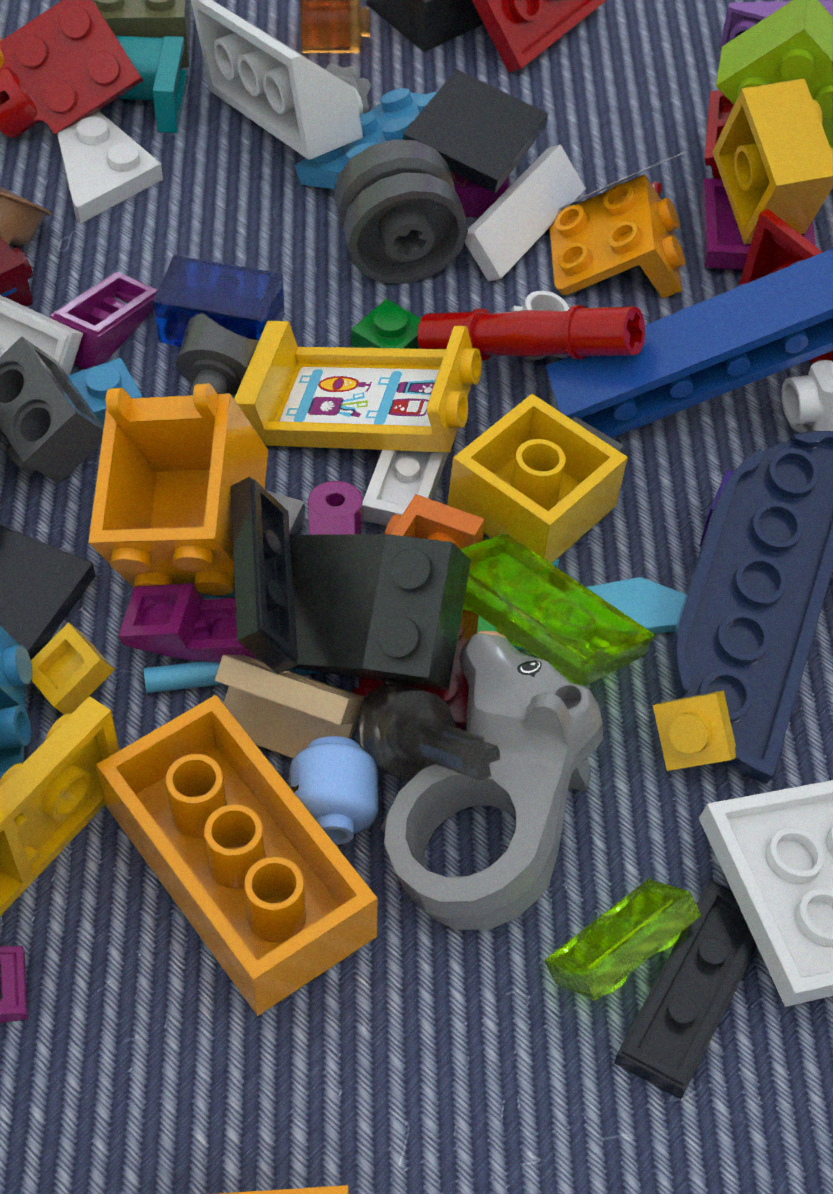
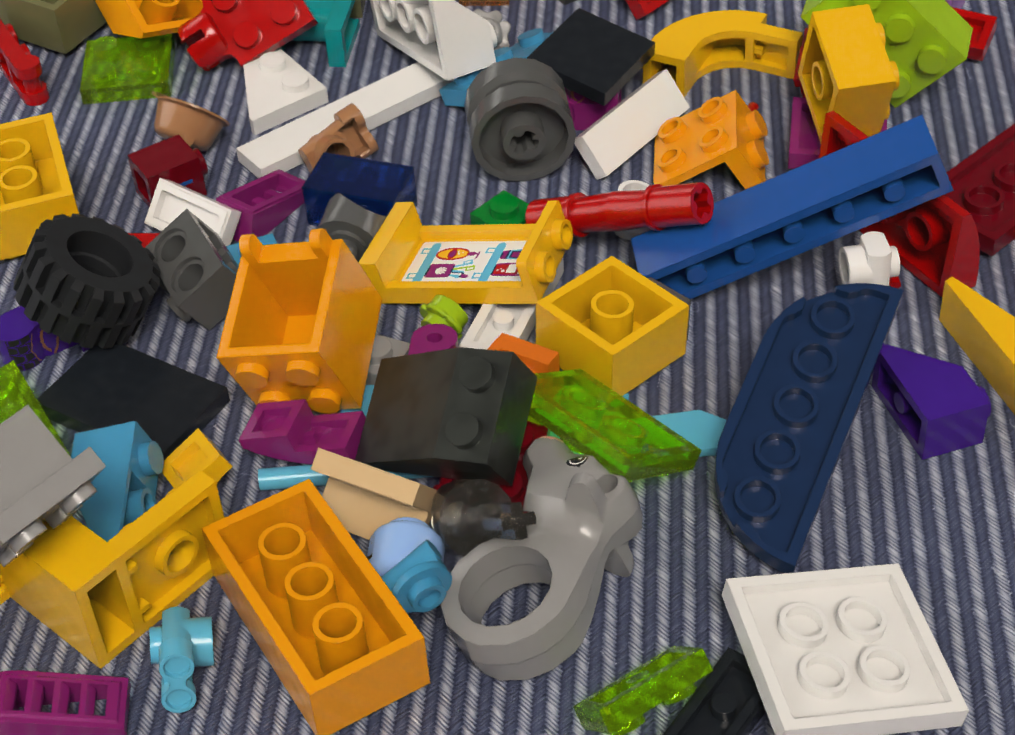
camera: 10 degrees right, 10 degrees down
(83, 906) = (177, 649): none -> medium azure plate
(181, 207) = (377, 103): none -> white tile
(189, 234) = (342, 137): none -> medium nougat plate
(263, 576) = (357, 384): black tile -> none
(336, 463) = (444, 311): none -> lime plate
(359, 819) = (419, 579): none -> dark azure plate
(618, 104) = (720, 42): none -> yellow arch
(621, 180) = (740, 87): white sticker -> none
(695, 730) = (727, 526): yellow plate -> none

